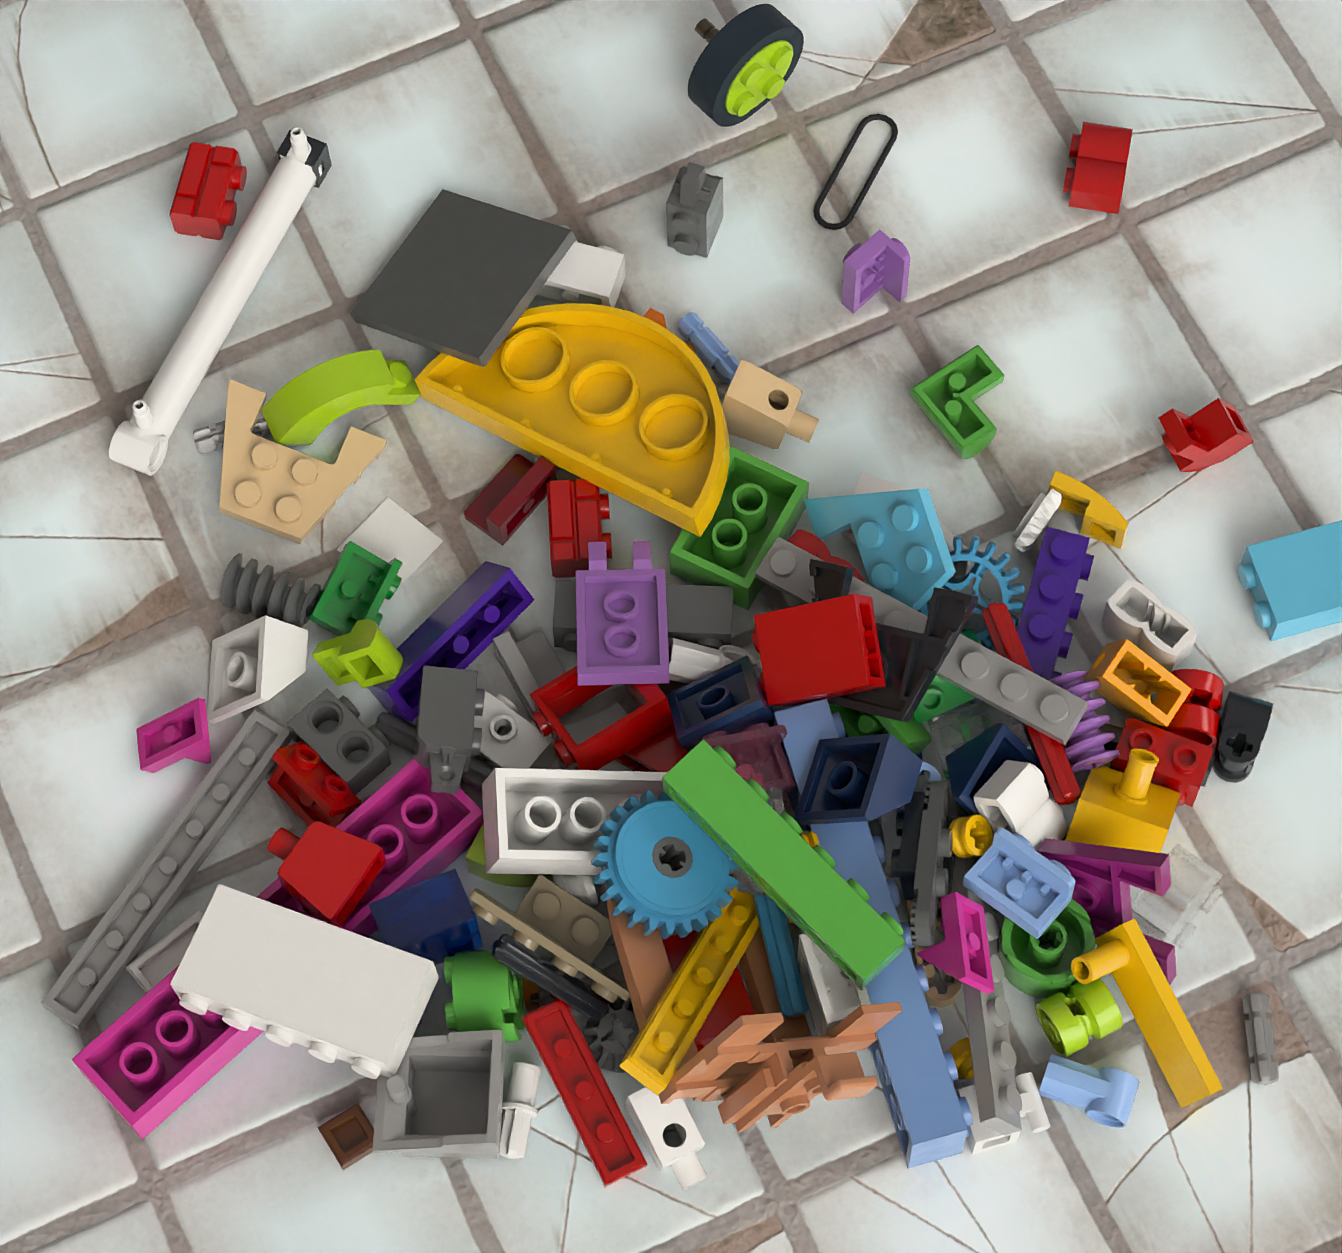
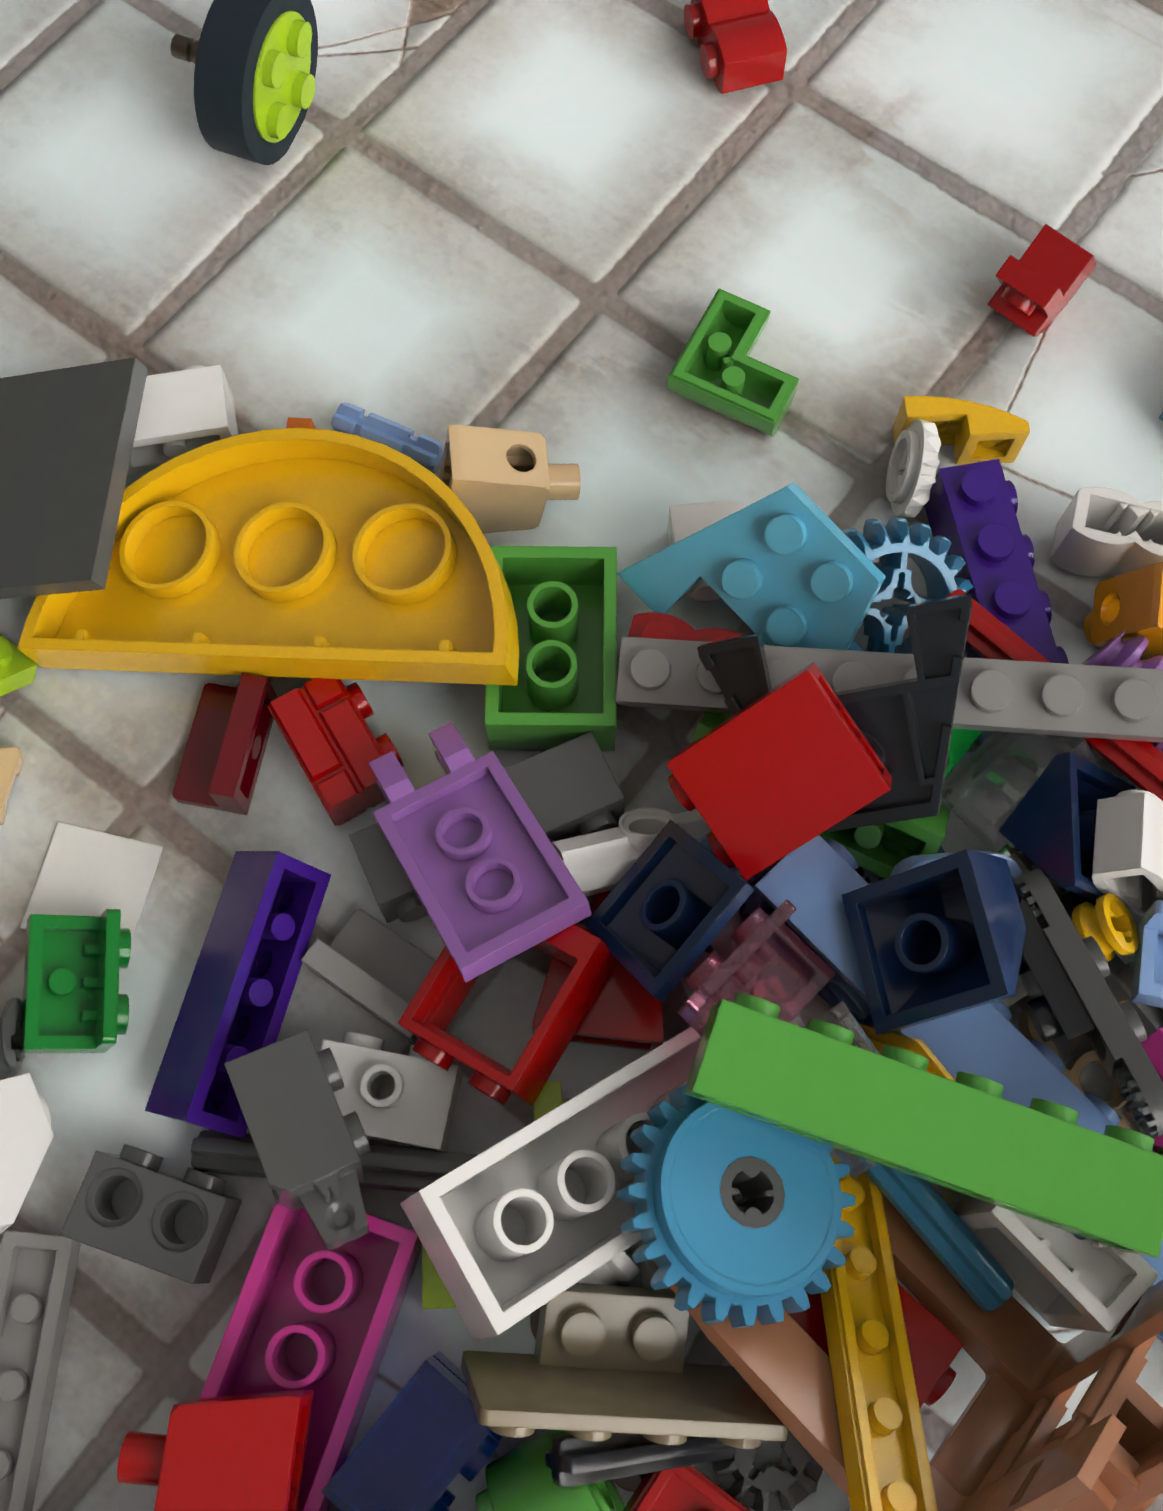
camera: 30 degrees left, 5 degrees up
(311, 786) = (147, 1312): red bracket -> none
(359, 656) = (124, 1077): lime brick -> none
(694, 210) = (282, 270): dark grey hinge -> none
(849, 218) = (428, 166): black piece -> none
(875, 266) = (547, 246): medium lavender bracket -> none

